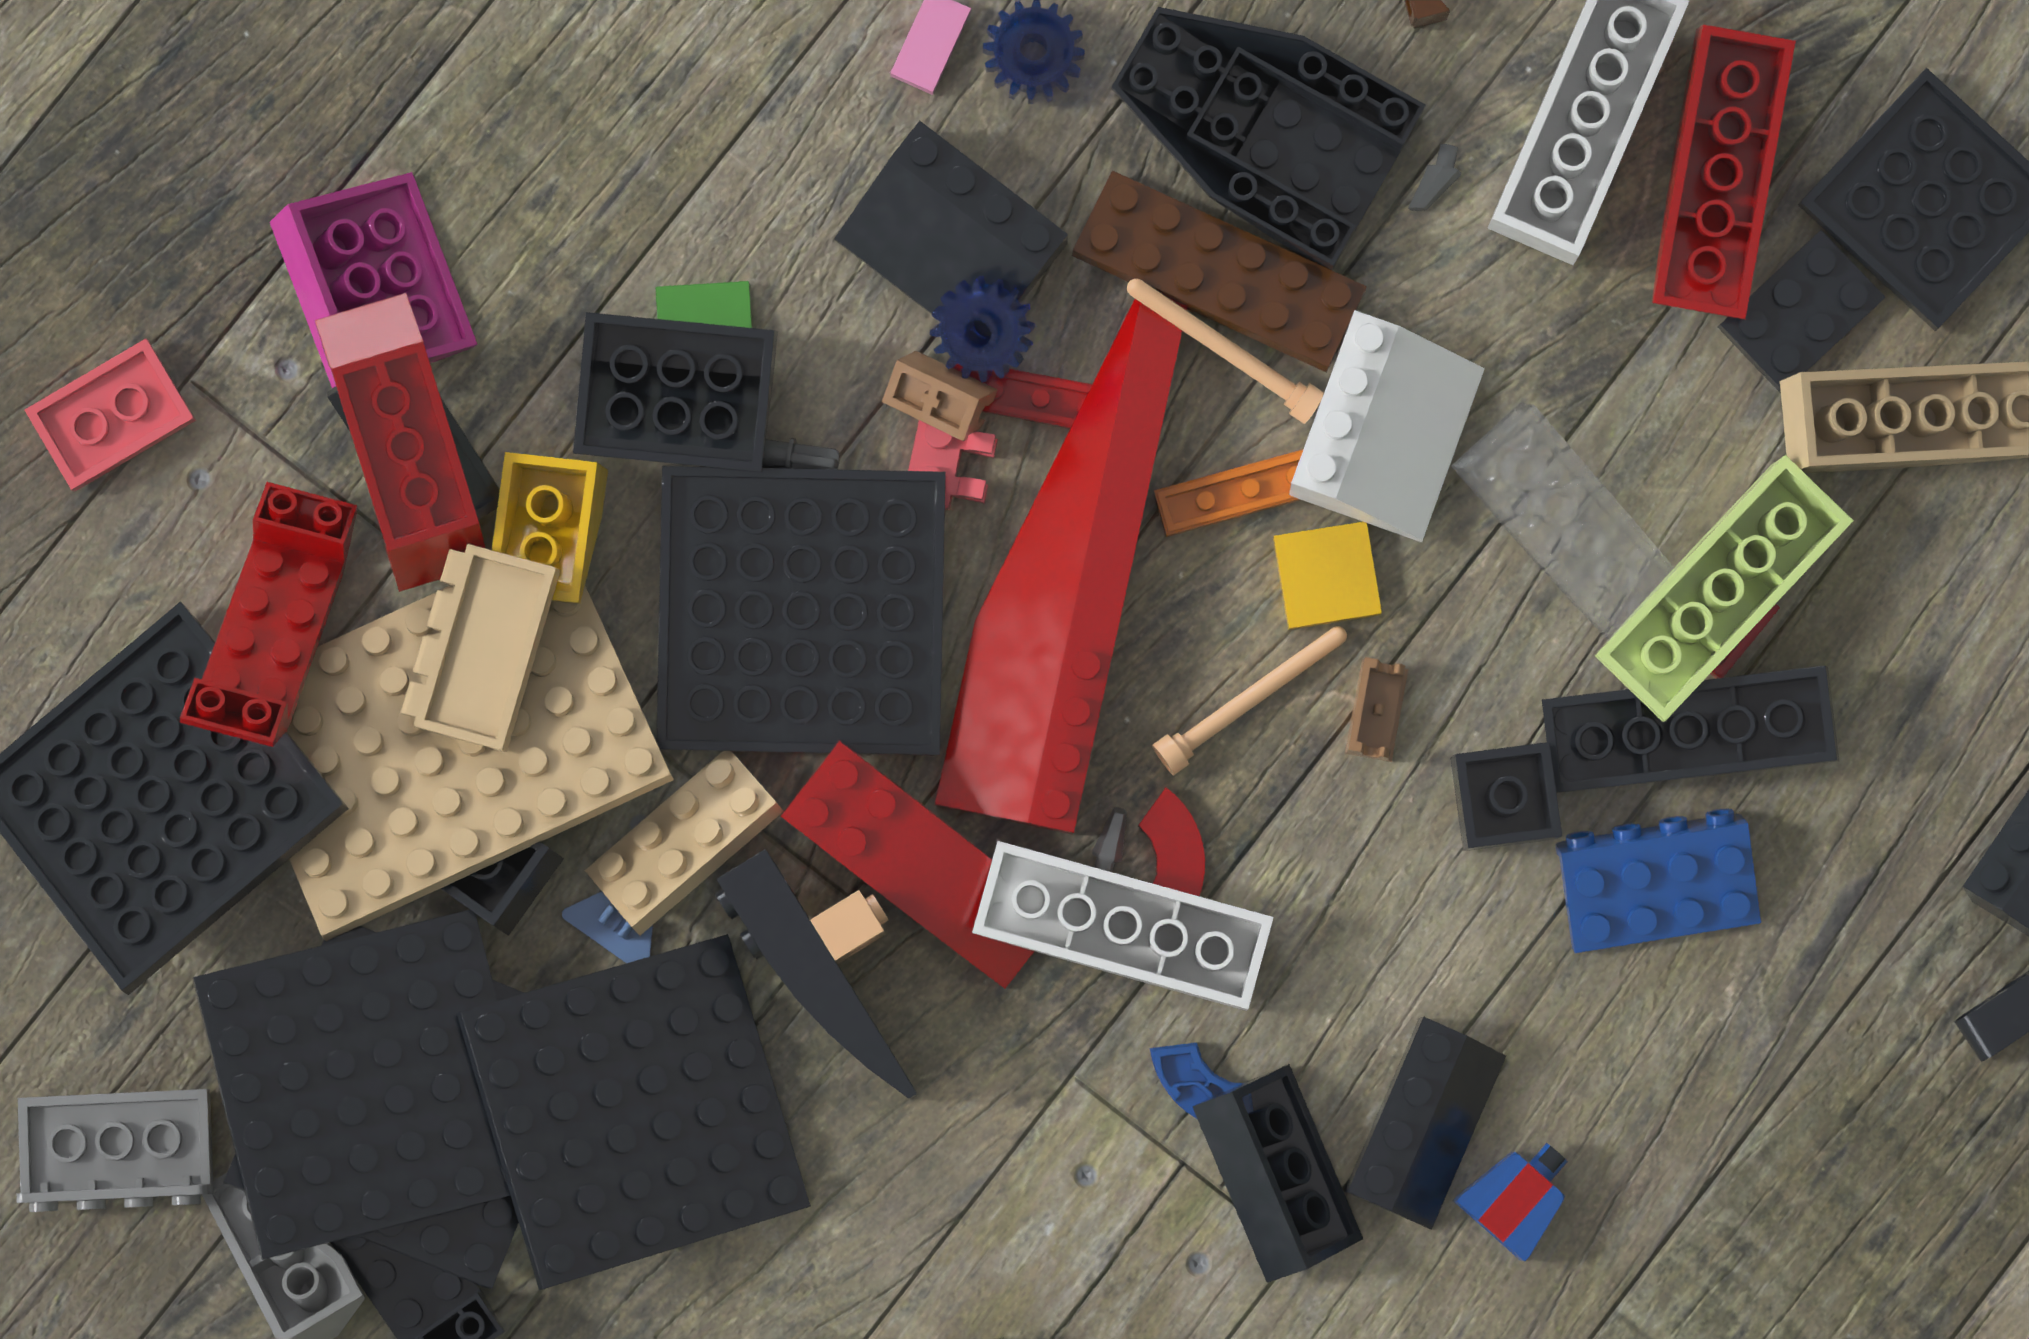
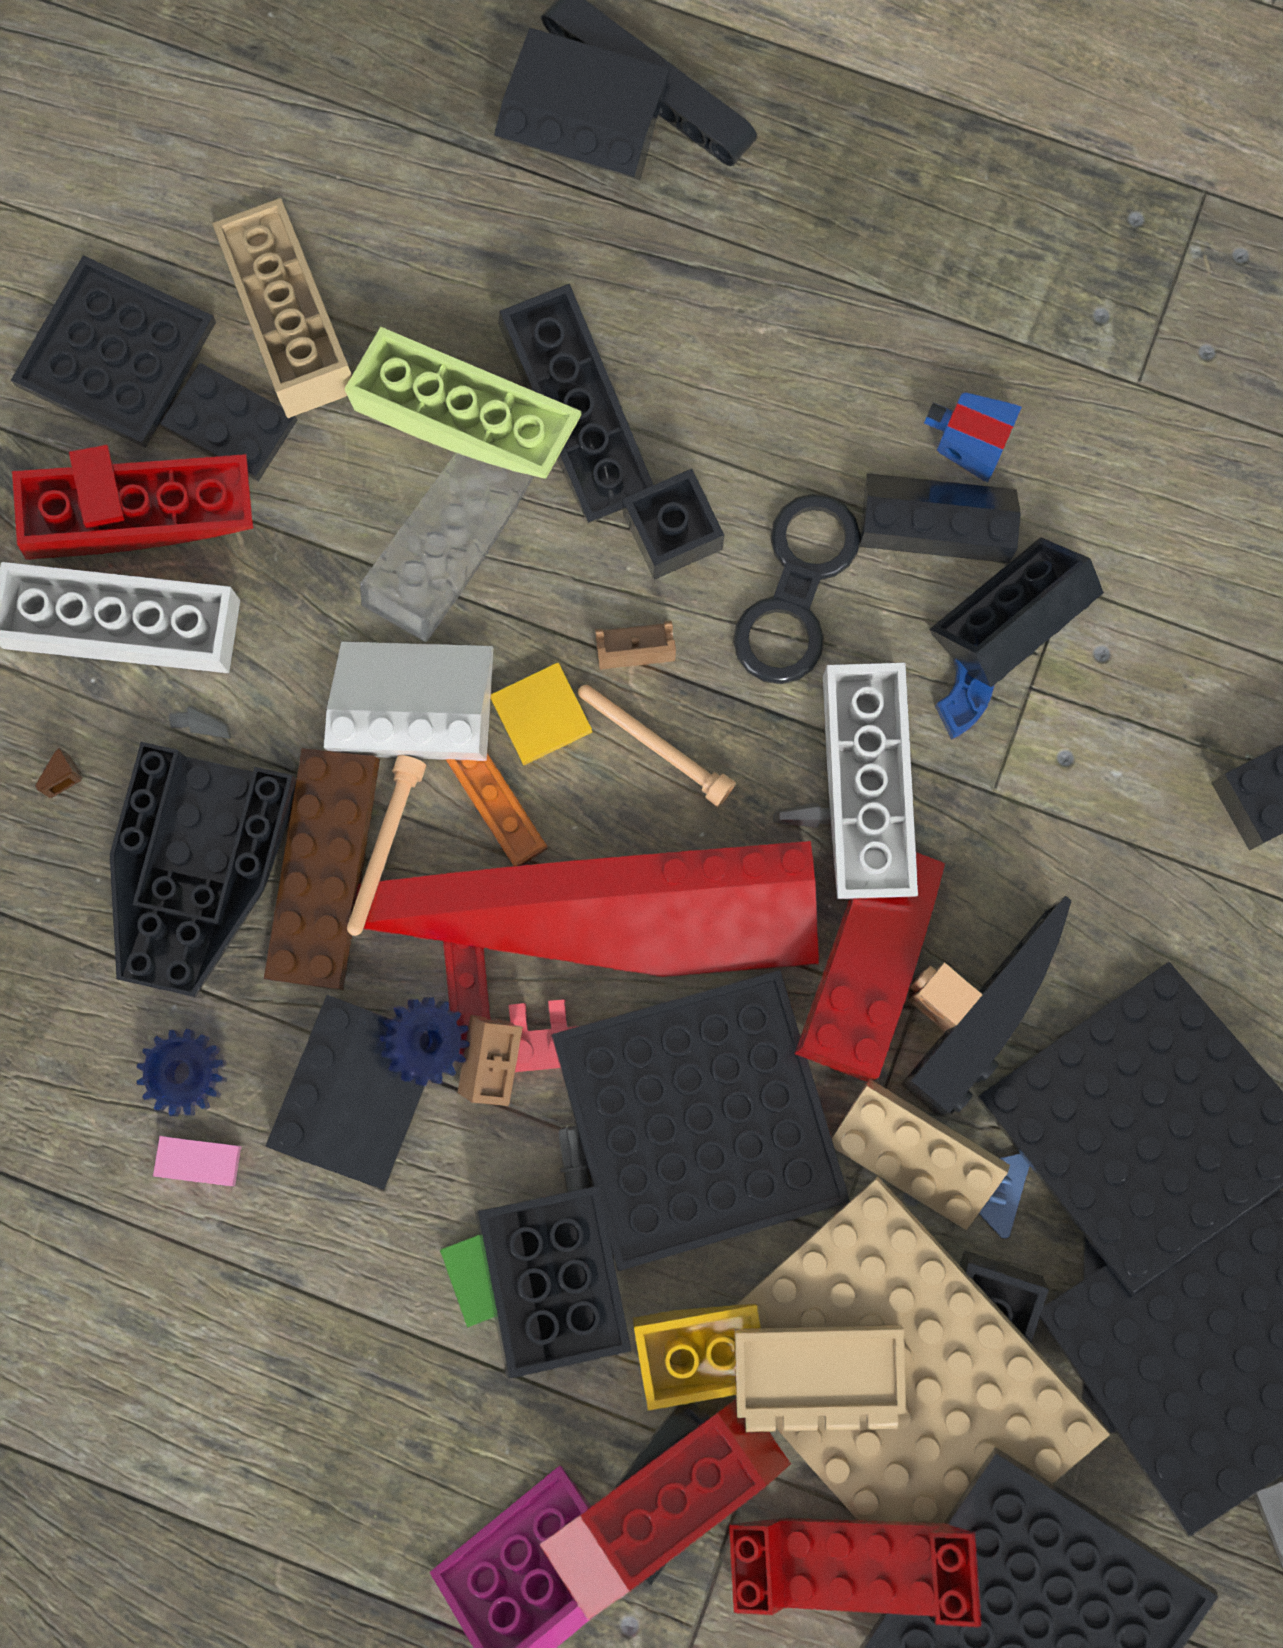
camera: 105 degrees left, 5 degrees down
(1176, 844) = (790, 765): red tile -> none
(1388, 924) = (796, 588): none -> black bar
(1658, 880) = (697, 399): blue bracket -> none
(1748, 133) = (96, 486): none -> red tile

